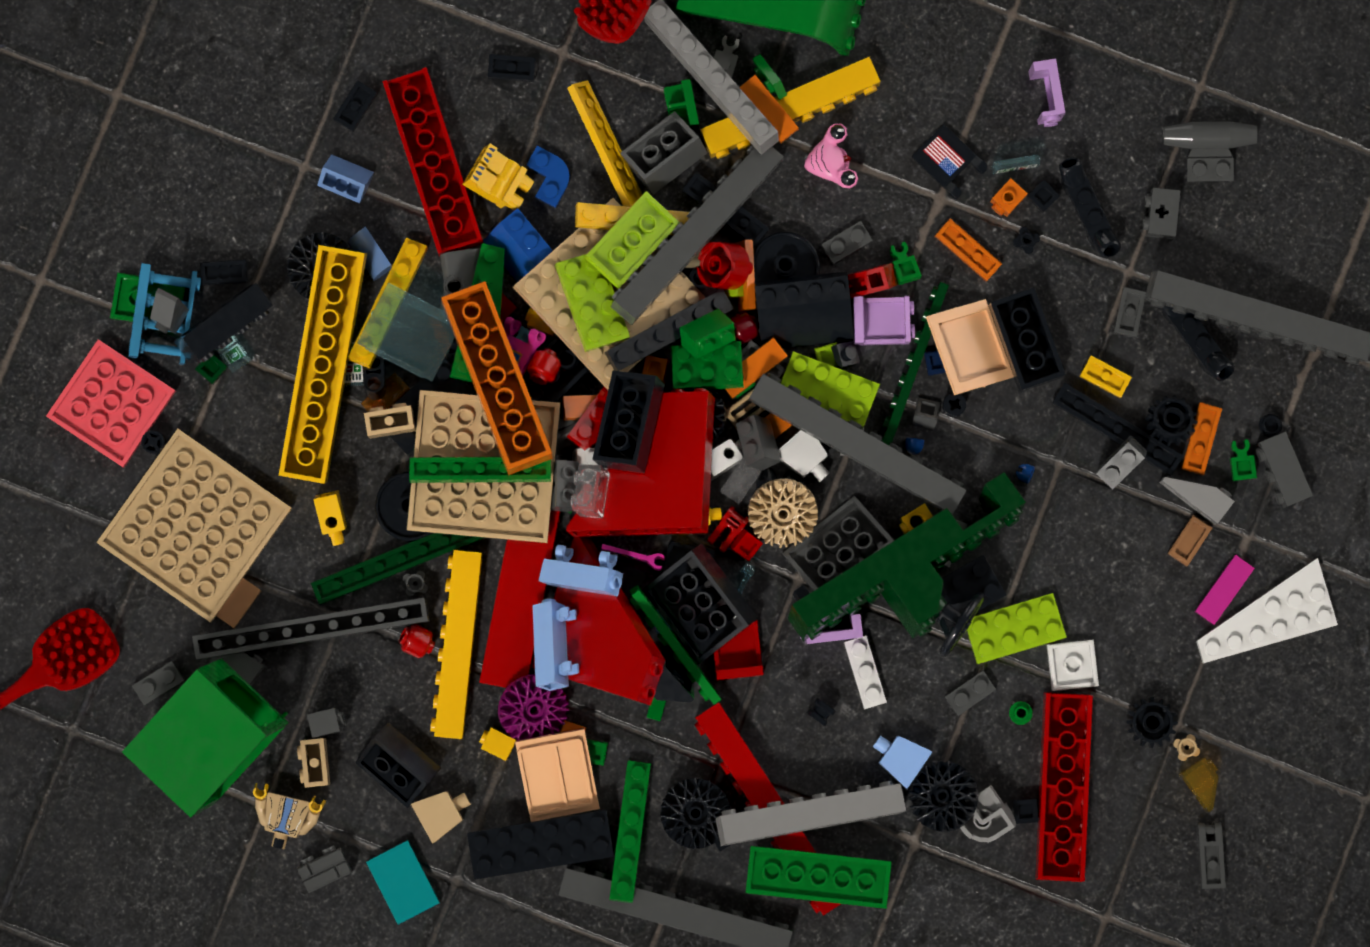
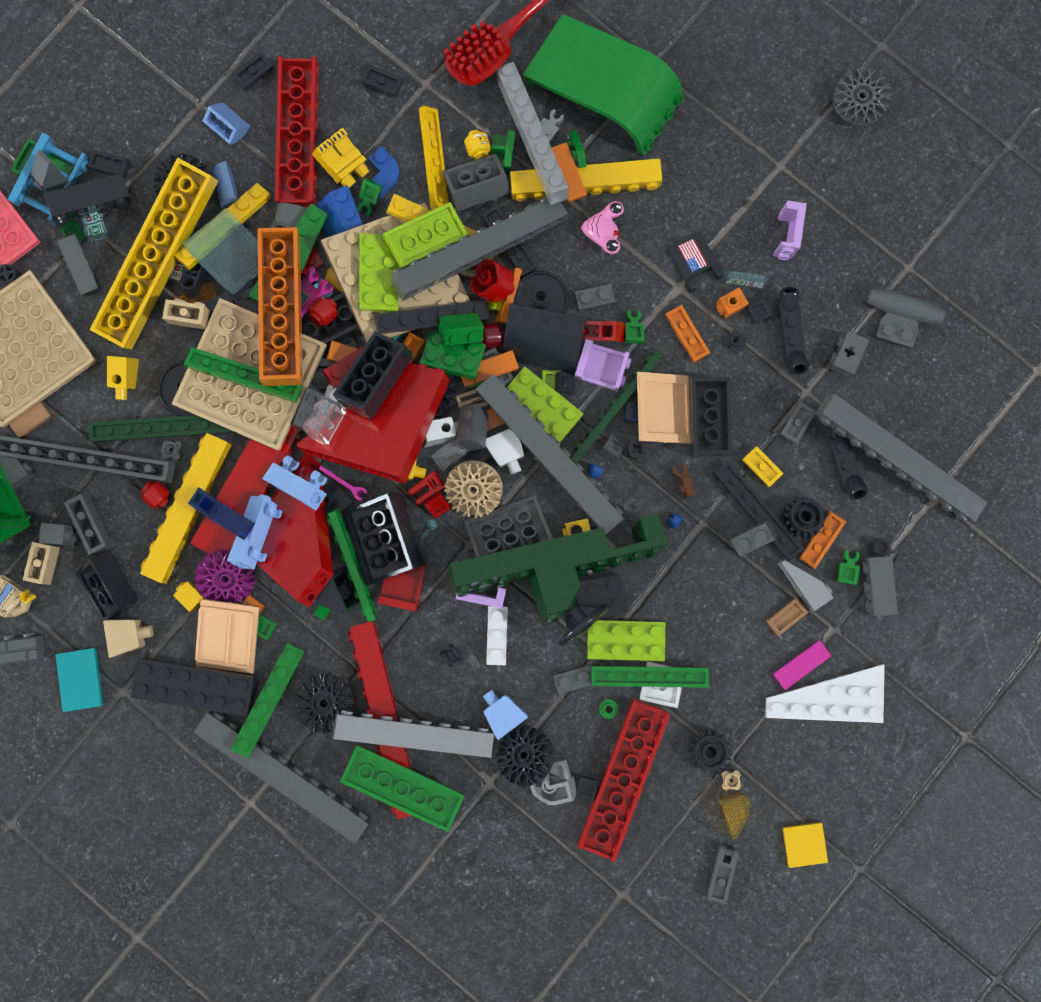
camera: 20 degrees right, 0 degrees up
(232, 403) = (78, 264): none -> dark grey tile
(353, 700) = (88, 524): none -> dark grey brick
(508, 635) = (221, 513): none -> clear blue slope
(545, 208) = (370, 193): none -> green plate
(650, 108) = (477, 144): none -> yellow head
(1024, 428) = (685, 485): none -> reddish brown plate
(1055, 660) = (650, 676): none -> green plate
(1293, 792) = (805, 844): none -> yellow tile

